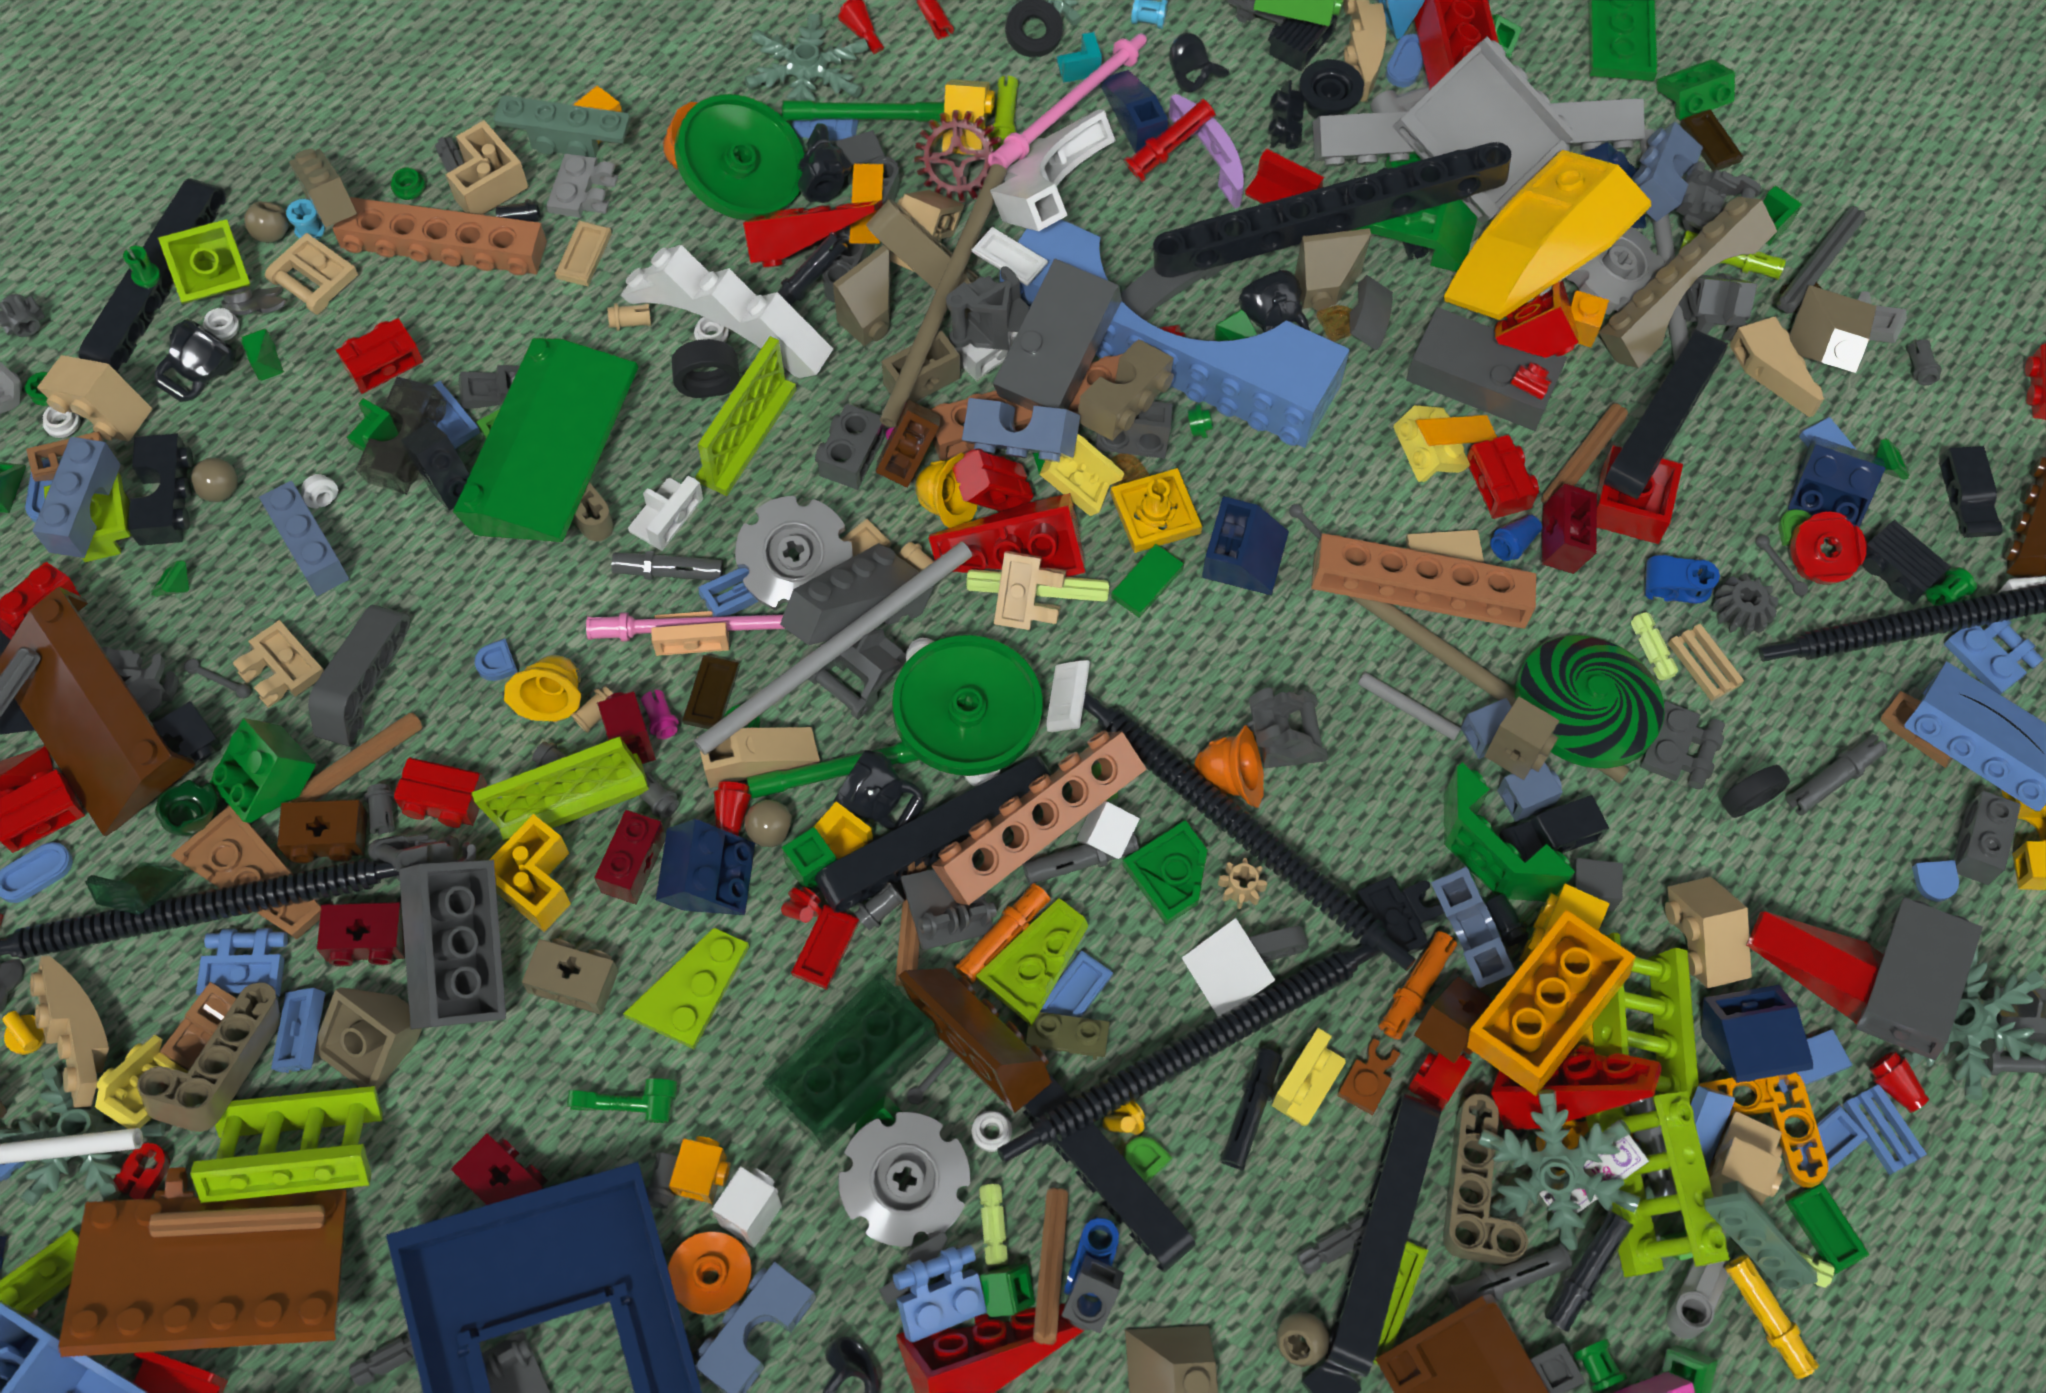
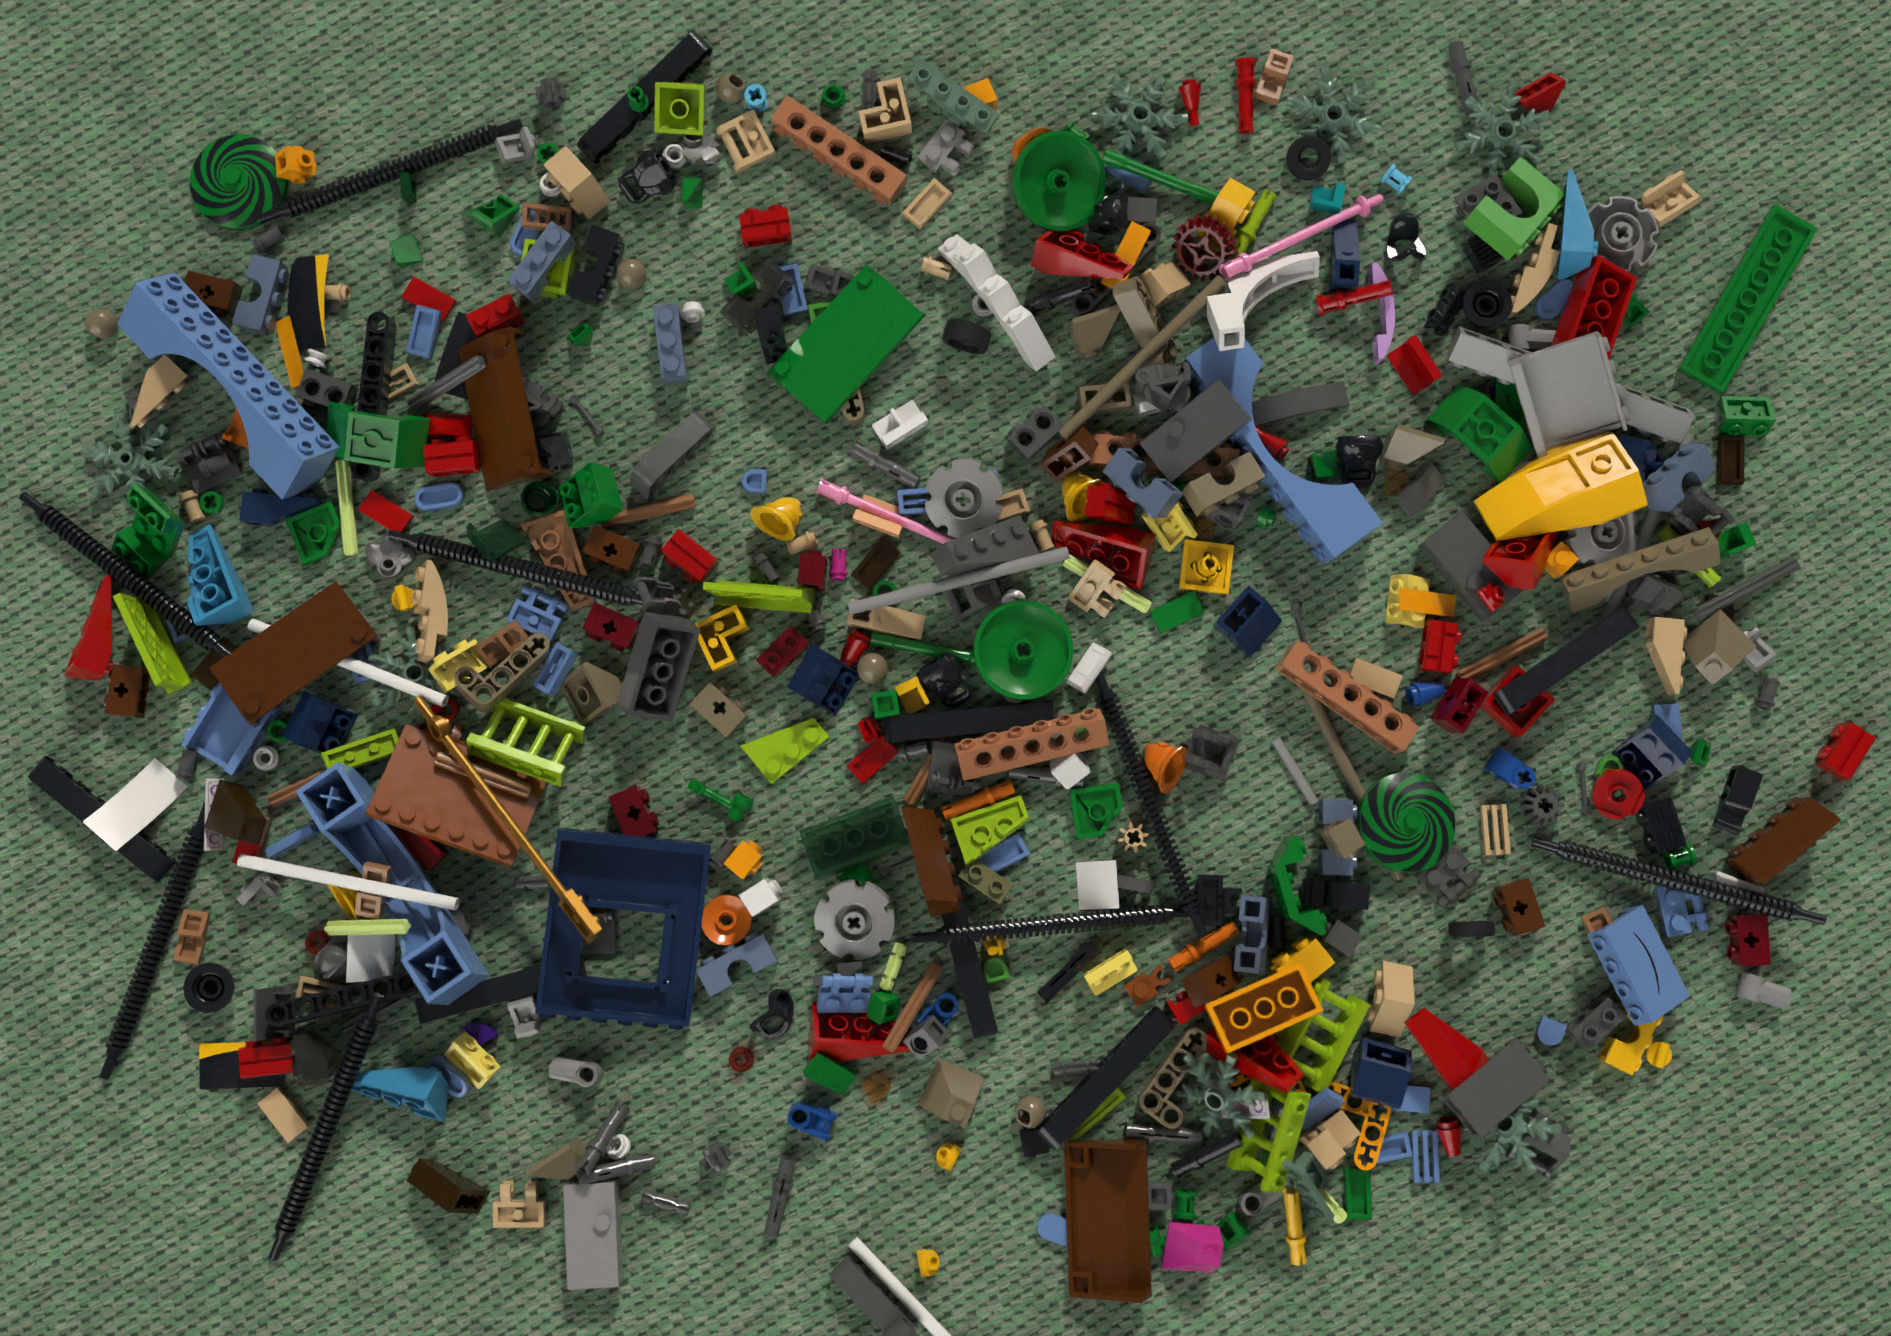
camera: 30 degrees right, 20 degrees up
(286, 657) = (631, 422): tan plate -> none
(322, 186) = (774, 84): dark tan arch -> none
(450, 1335) = (571, 904): none -> pearl gold bar
(744, 420) = (976, 388): lime fence -> none
(991, 1118) = (917, 921): white plate -> none
(1003, 251) = (1195, 353): white tile -> none
(1331, 209) = (1431, 410): black beam -> none
(1654, 646) = (1469, 803): yellowish green axle -> none
(1789, 721) = (1528, 916): none -> reddish brown brick
(1848, 765) = (1541, 937): dark grey pin -> none

